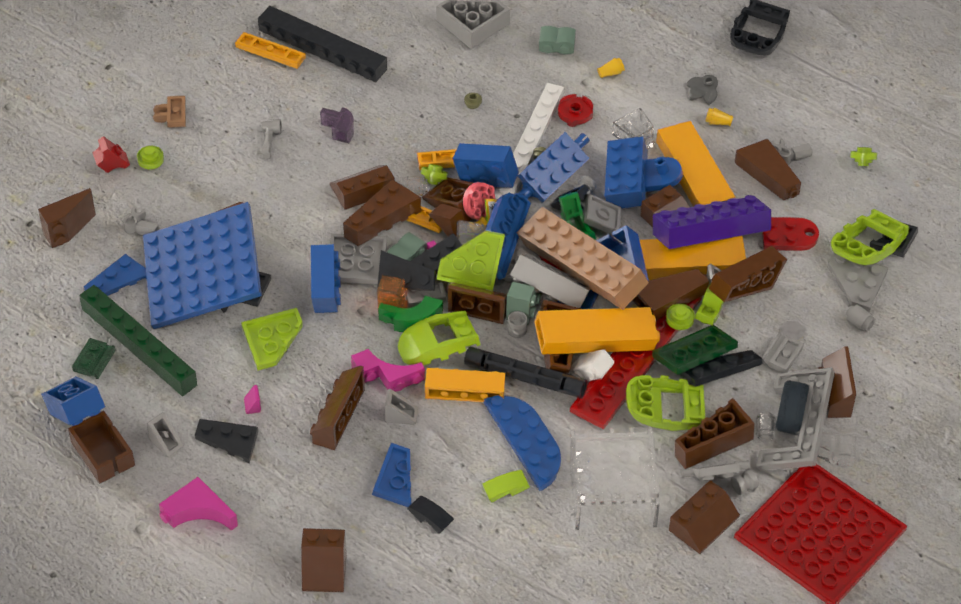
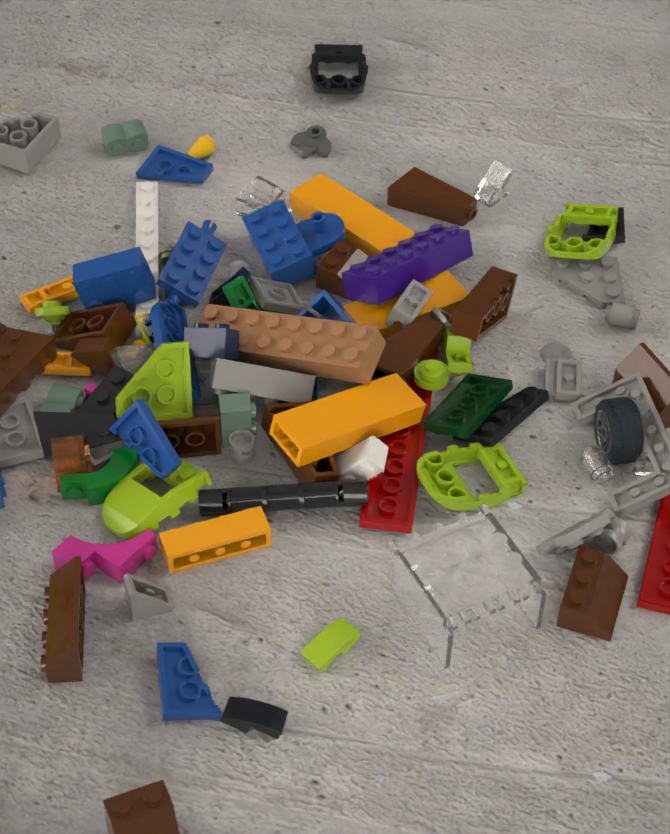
camera: 25 degrees left, 5 degrees down
(447, 296) = (146, 436): none -> blue wing
(473, 100) = (58, 224): olive plate -> none
(474, 199) = (122, 321): coral tile -> none
(527, 239) = (212, 342): none -> brick
(527, 438) = (324, 576): blue plate -> none
(573, 117) = (183, 201): red plate -> none
(582, 77) = (174, 166): none -> blue wing
(691, 255) = (409, 304): none -> light grey hinge
(715, 435) = (549, 493): reddish brown wedge -> none
(718, 117) = (345, 164): yellow cone -> none
(790, 235) = (493, 252): red plate -> none
(795, 153) = (449, 174): light grey bar -> none
(824, 173) = (491, 187): none -> clear slope
(863, 156) = (522, 157): lime plate -> none

